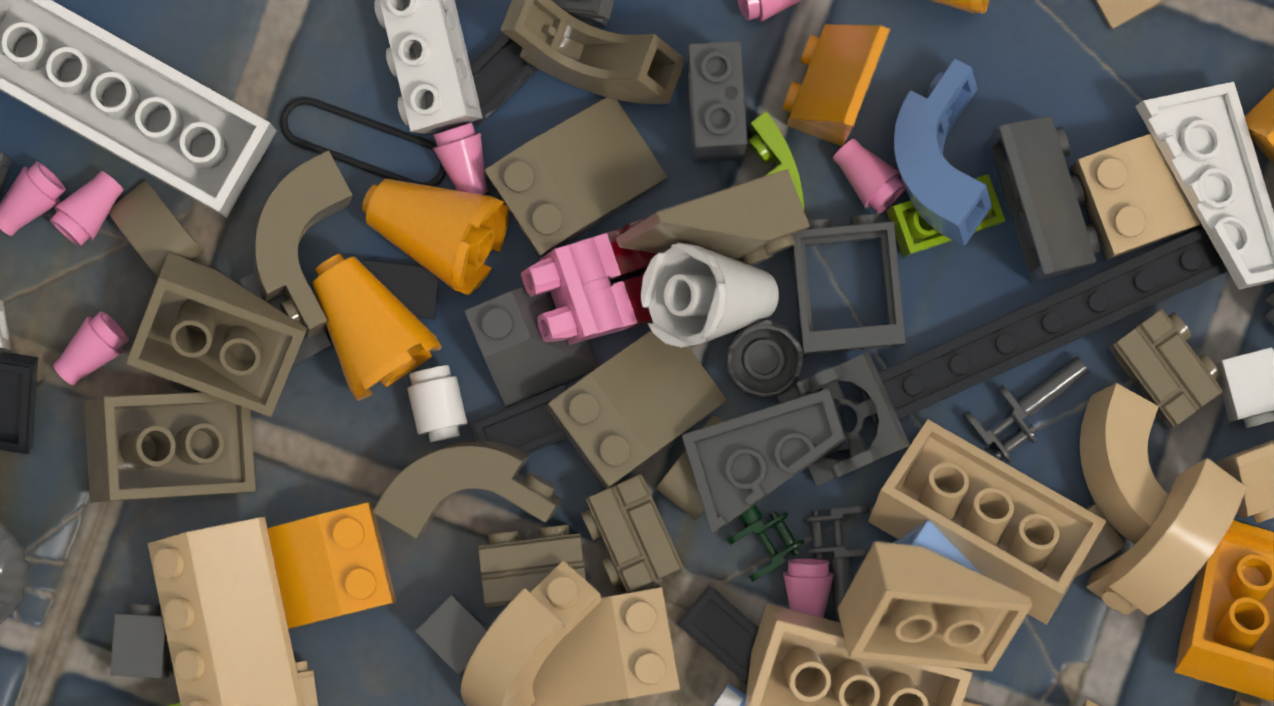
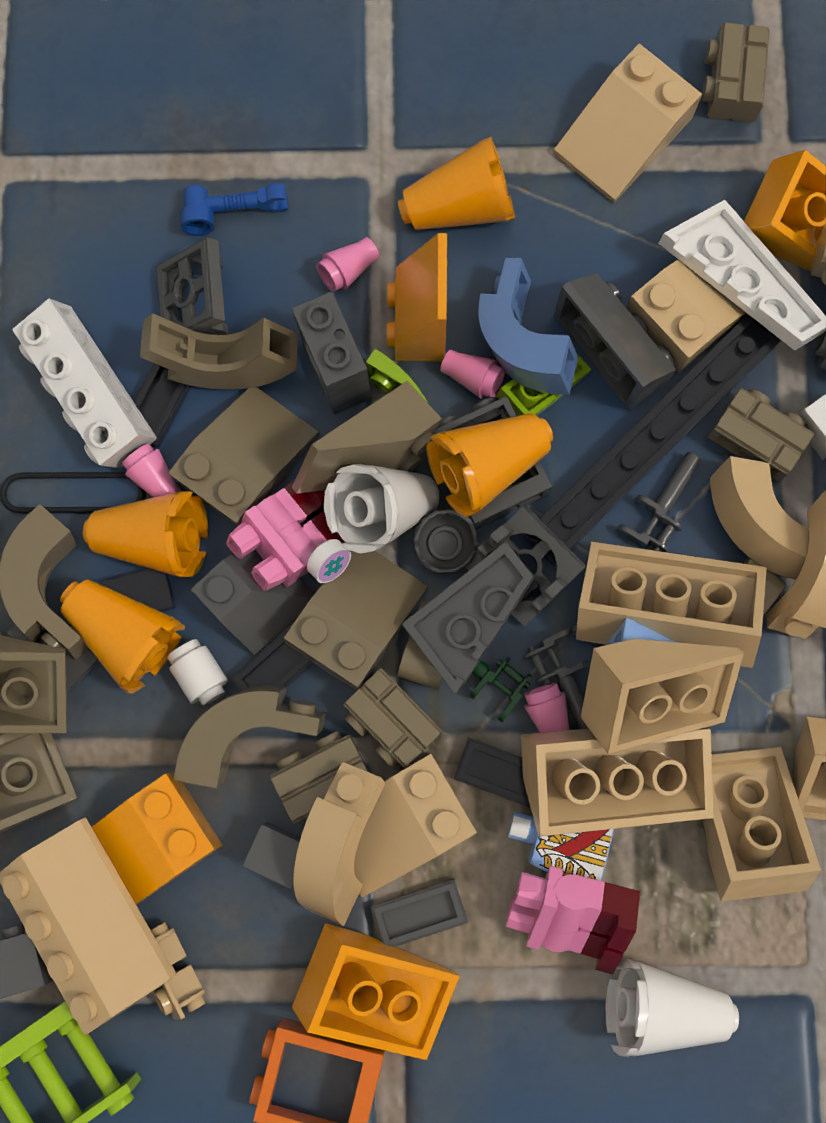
camera: 15 degrees left, 5 degrees down
(627, 336) = (328, 561): none -> tile
(843, 289) = (486, 458): none -> light orange cone

